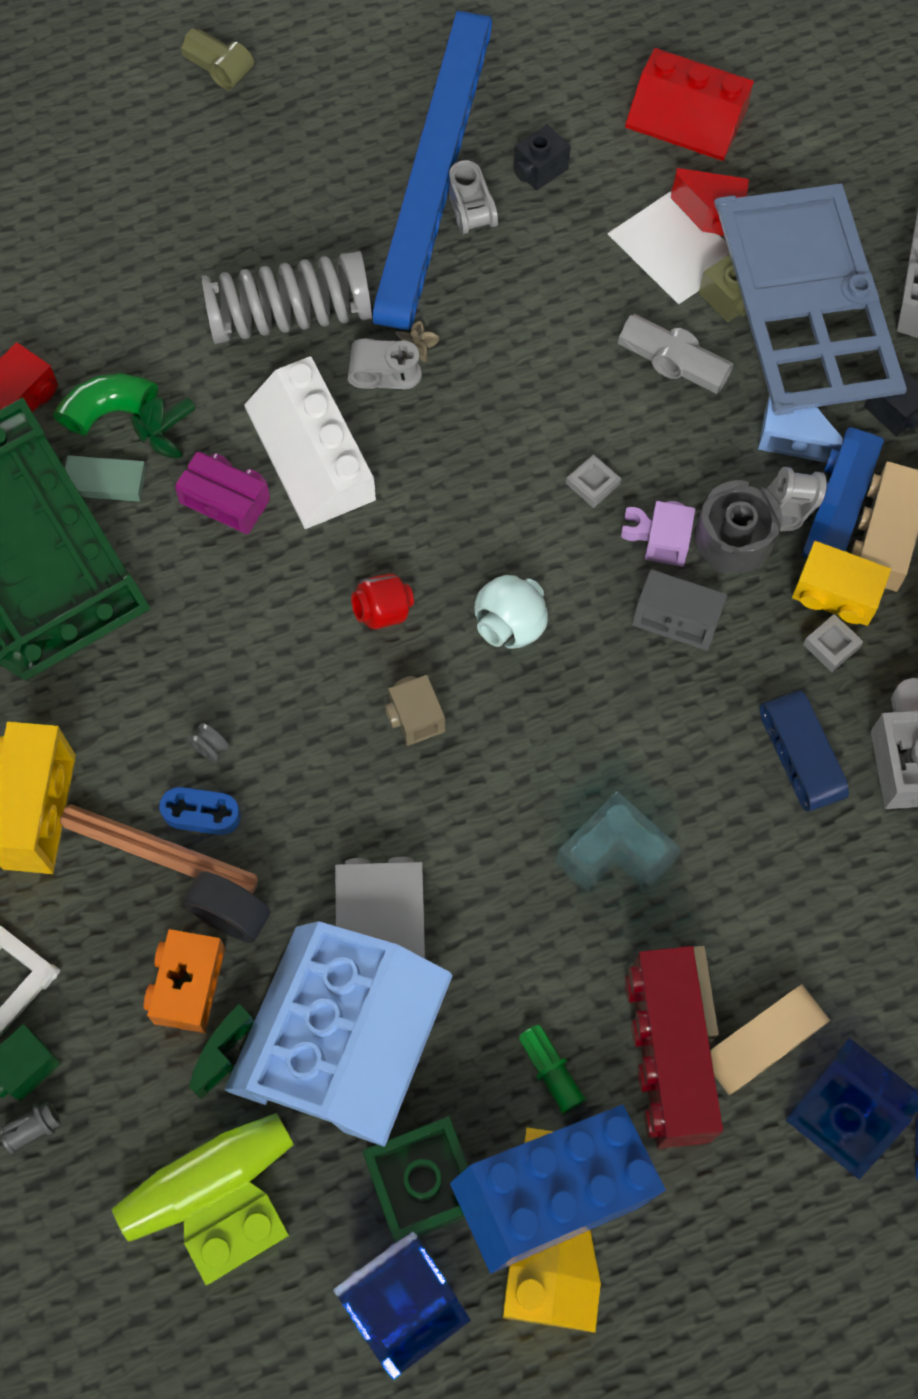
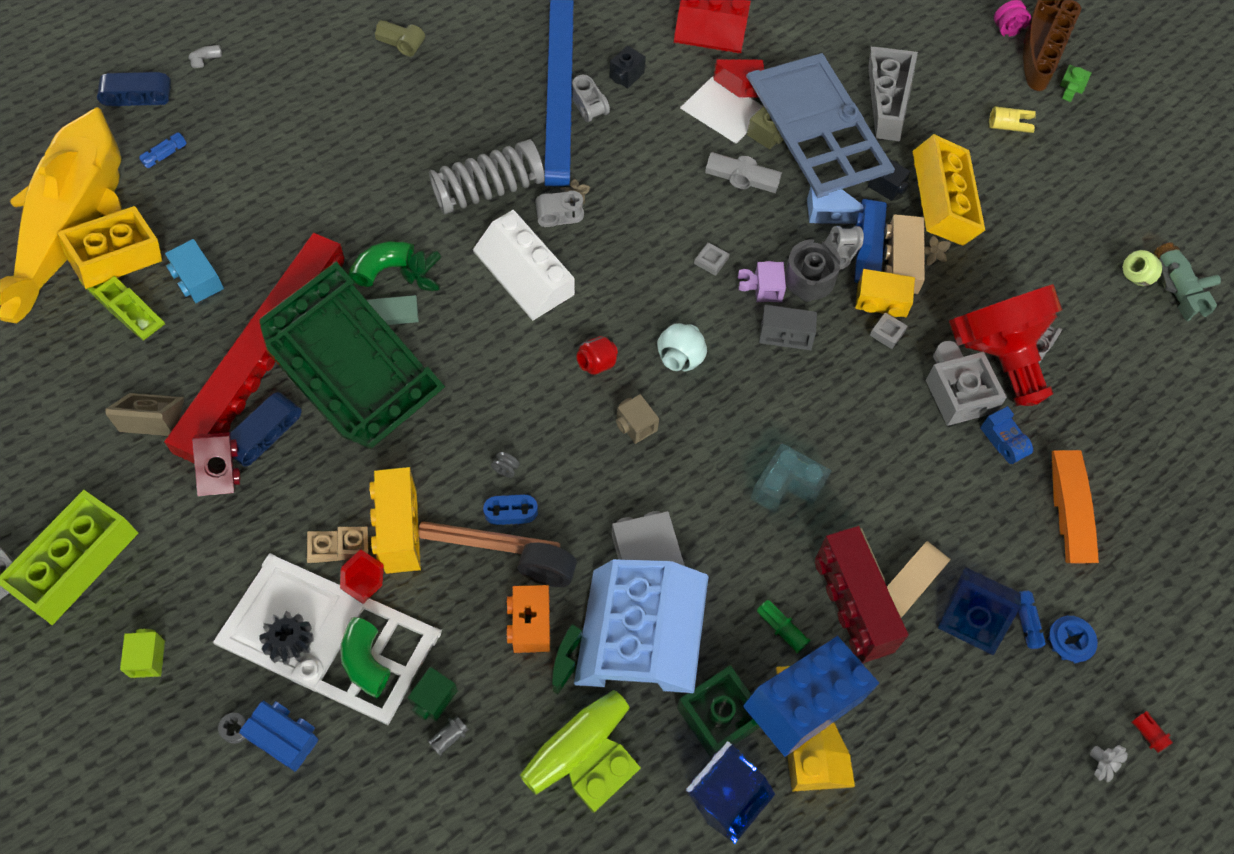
camera: 15 degrees left, 5 degrees down
(223, 491) = (474, 305): magenta brick -> none
(804, 751) = (889, 399): dark blue beam -> none

